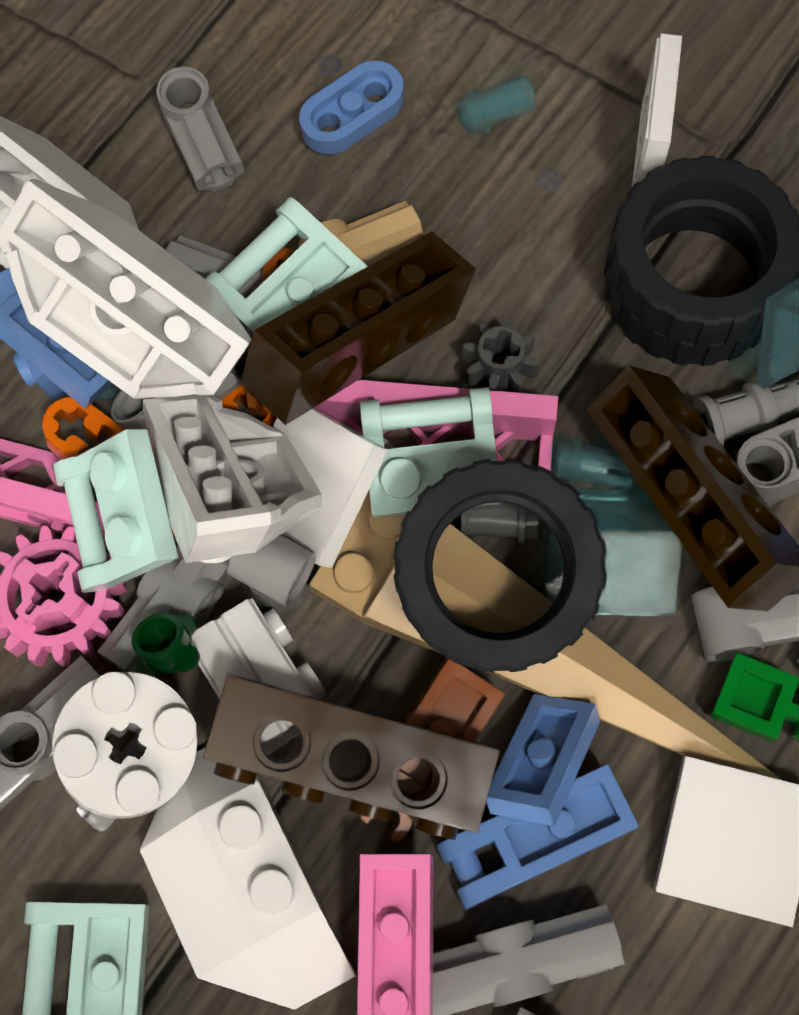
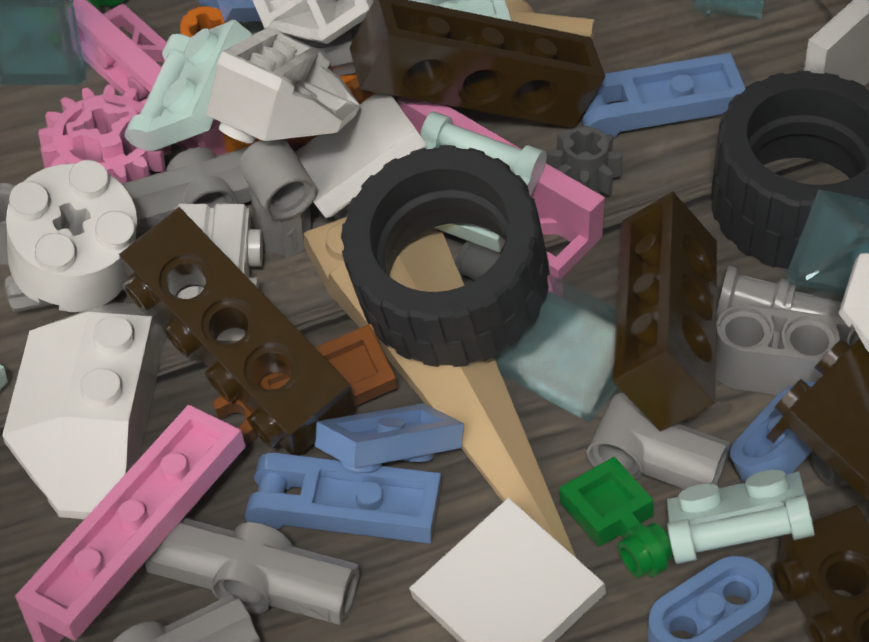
camera: 30 degrees right, 20 degrees down
(162, 632) = (157, 192): dark green plate -> none
(519, 241) = (664, 94): none -> medium blue plate
(590, 465) = (595, 268): clear light blue pin -> none

